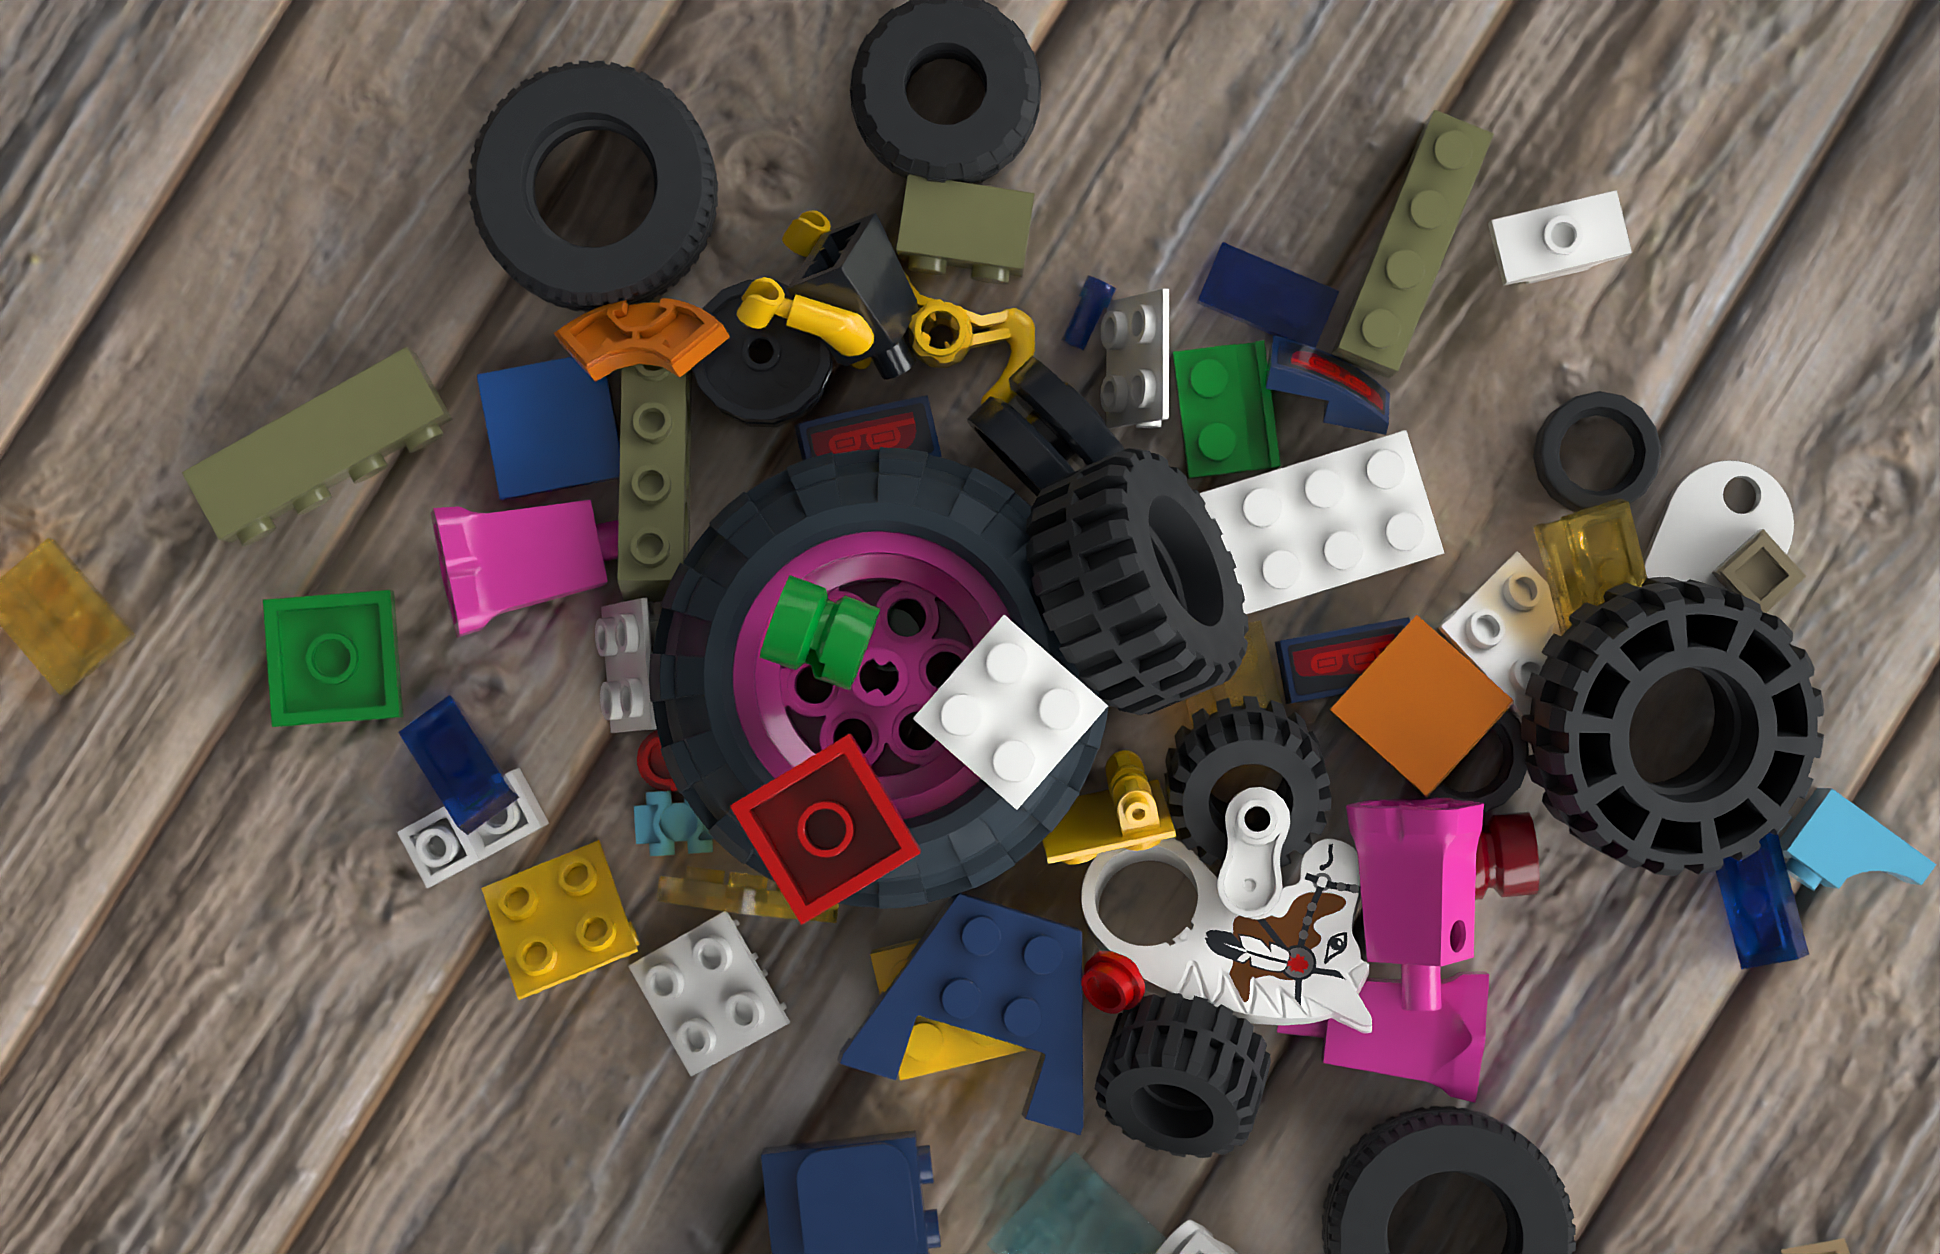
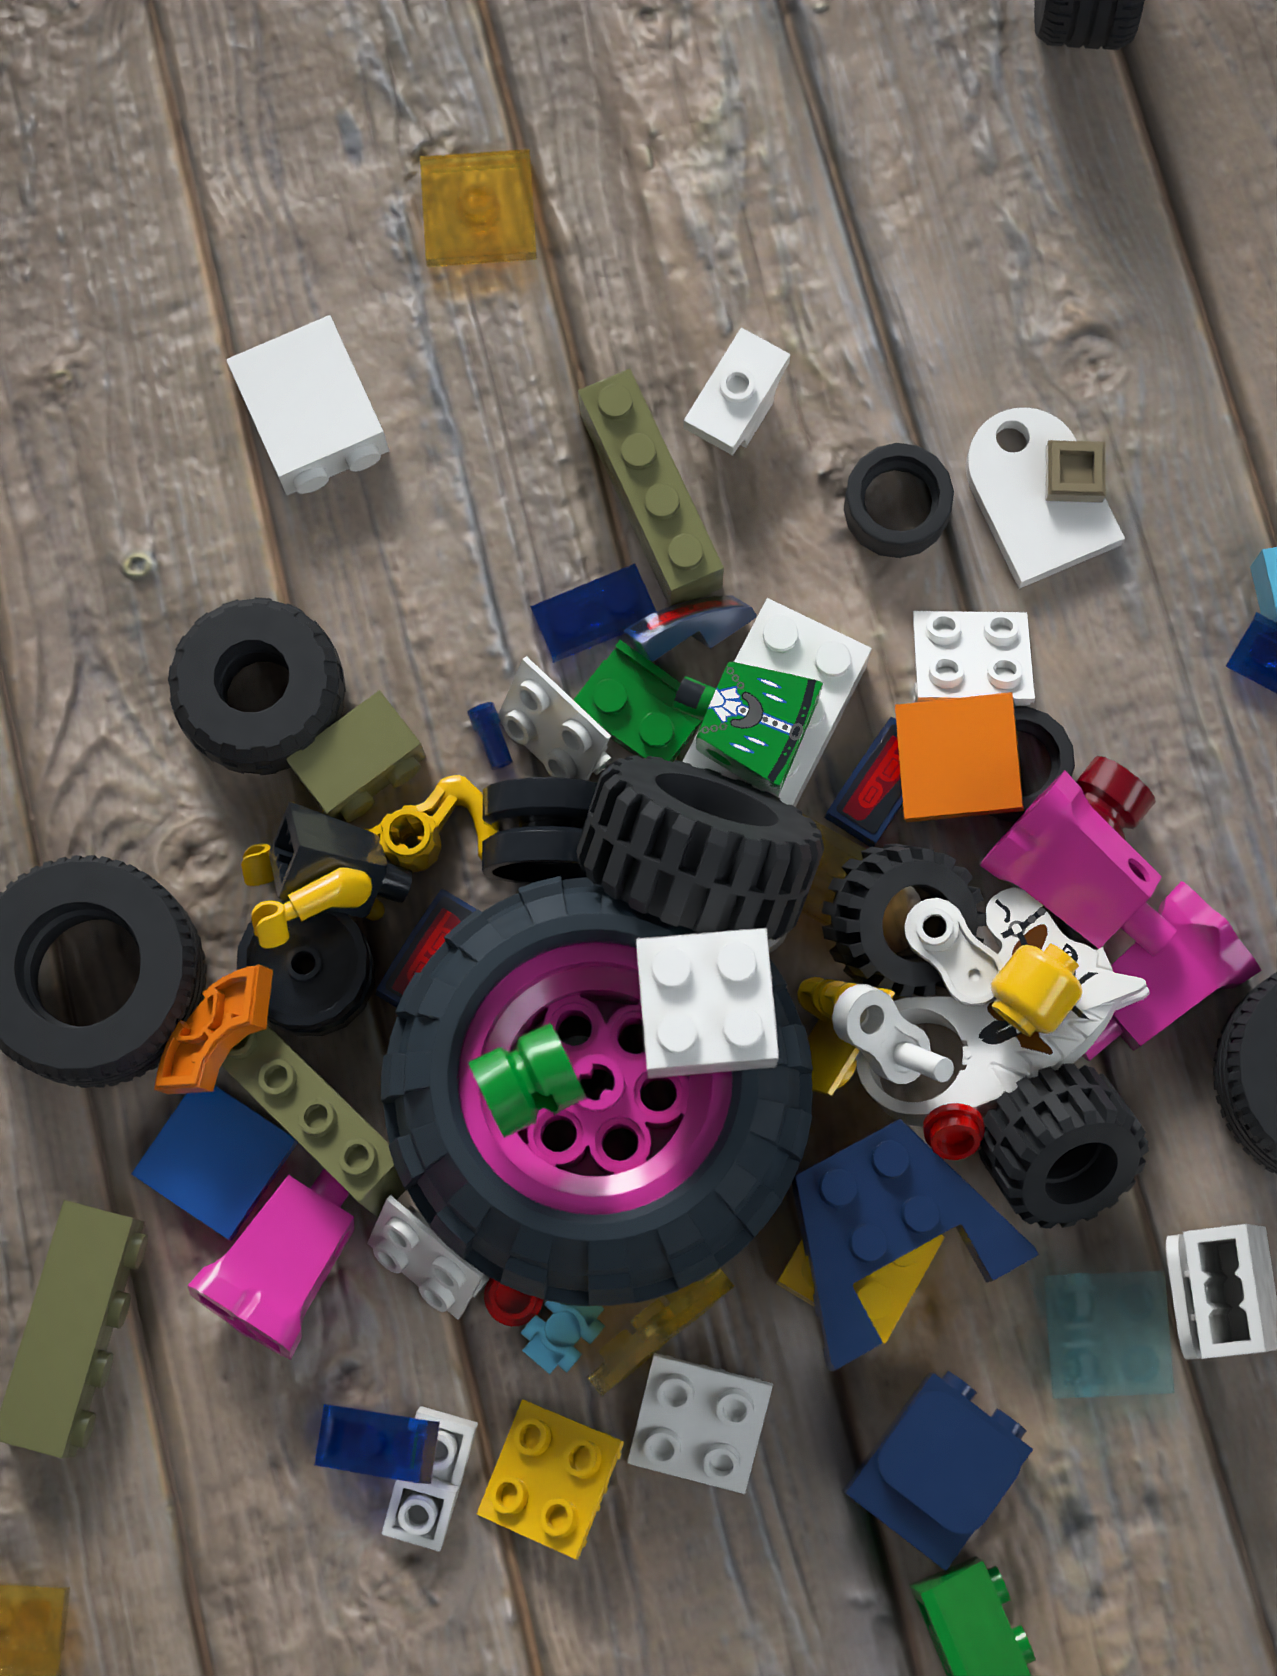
camera: 40 degrees left, 10 degrees down
(332, 658) = (220, 1462): green plate -> none
(826, 829) = (665, 1203): red brick -> none
(1132, 867) = (888, 1041): none -> white piece
(1282, 945) = (1036, 989): none -> yellow head
(1286, 518) = (751, 720): none -> green torso
(1589, 555) = (978, 568): clear yellow plate -> none
(1758, 740) = (1183, 562): black tyre -> none

